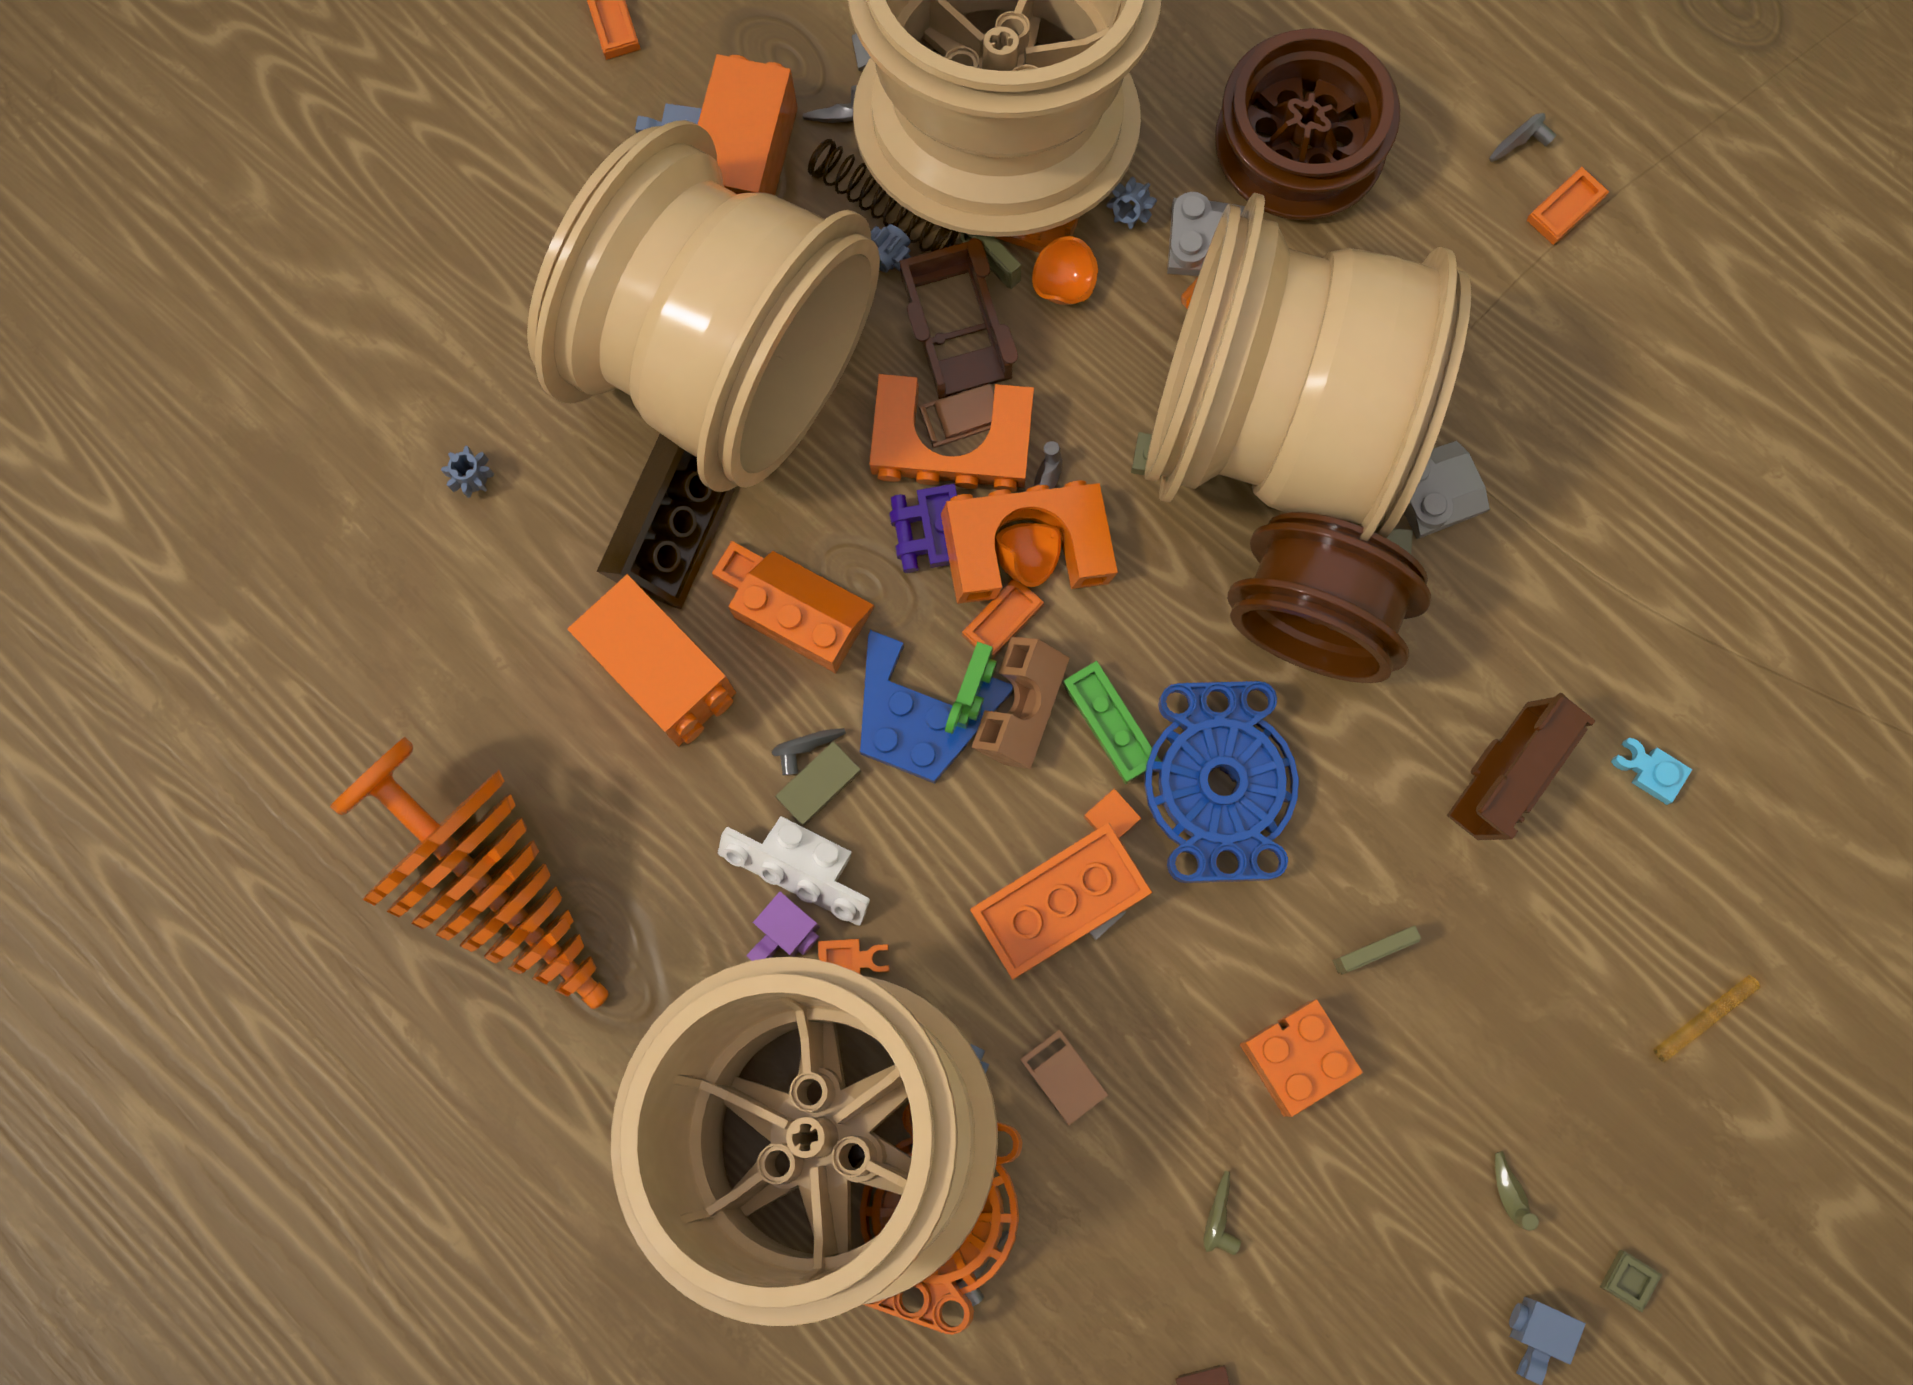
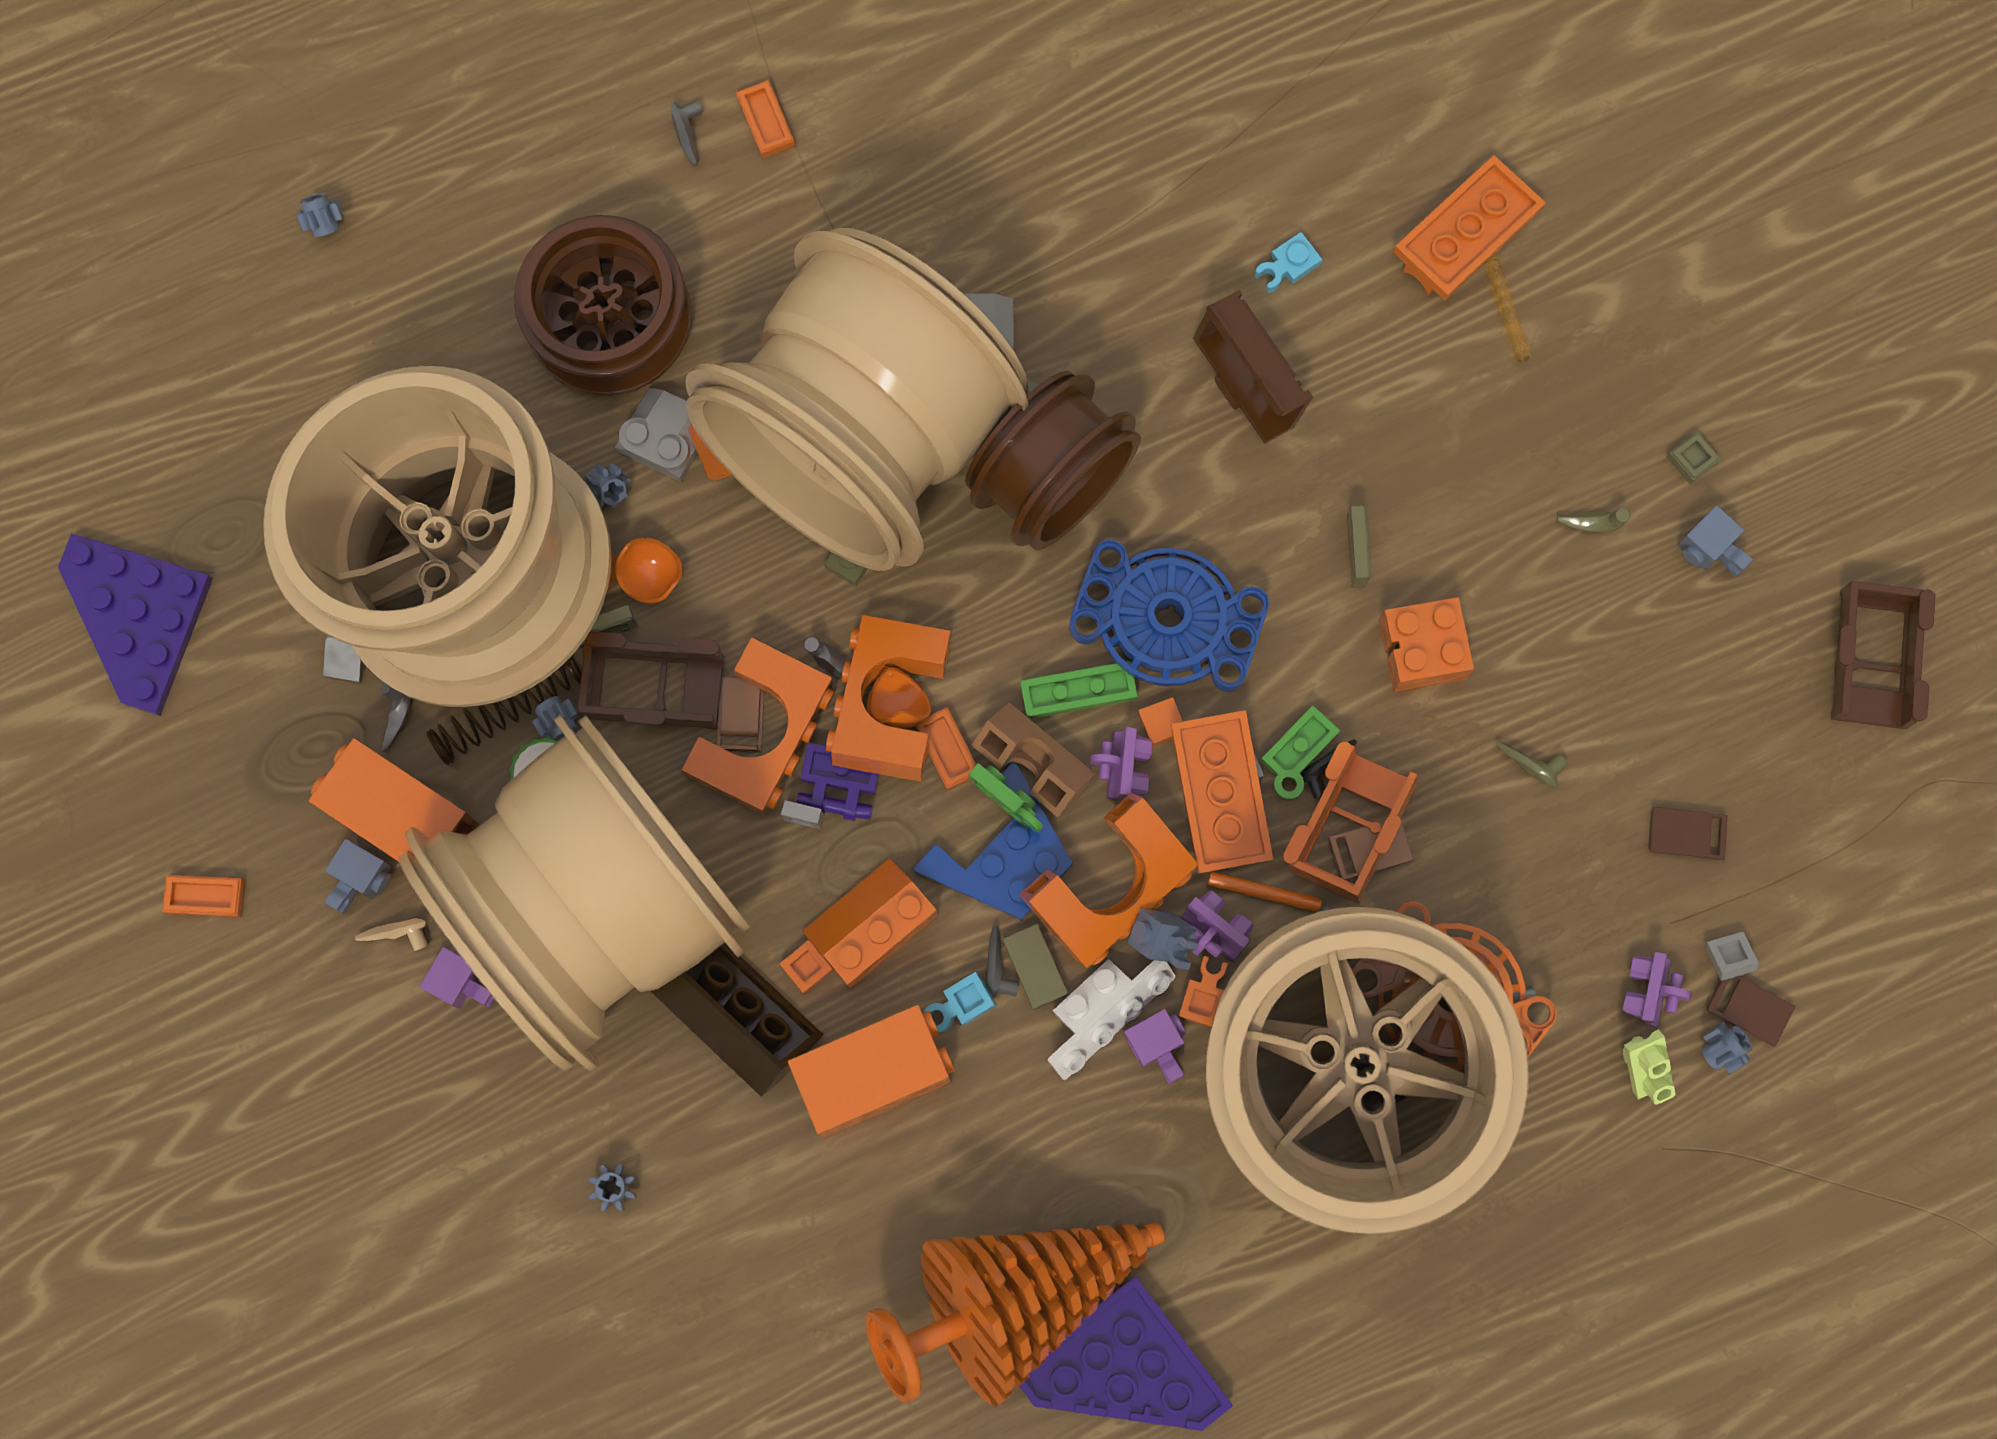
camera: 70 degrees left, 0 degrees up
(457, 1017) = (1128, 1367): none -> dark purple plate
(757, 729) = (966, 1001): none -> medium azure plate
(870, 822) = (1159, 867): none -> orange arch
(882, 506) = (802, 815): none -> light grey tile
(888, 895) = (1163, 937): none -> sand blue brick
(914, 943) = (1213, 931): none -> medium lavender hips
(978, 984) = (1264, 891): none -> orange bar
(1069, 790) = (1117, 763): none -> medium lavender hips
(1118, 989) = (1313, 773): none -> black bar
(1133, 1044) = (1370, 782): none -> orange piece
(1137, 965) = (1298, 749): none -> bright green hinge
(1778, 944) = (1468, 228): none -> orange piece

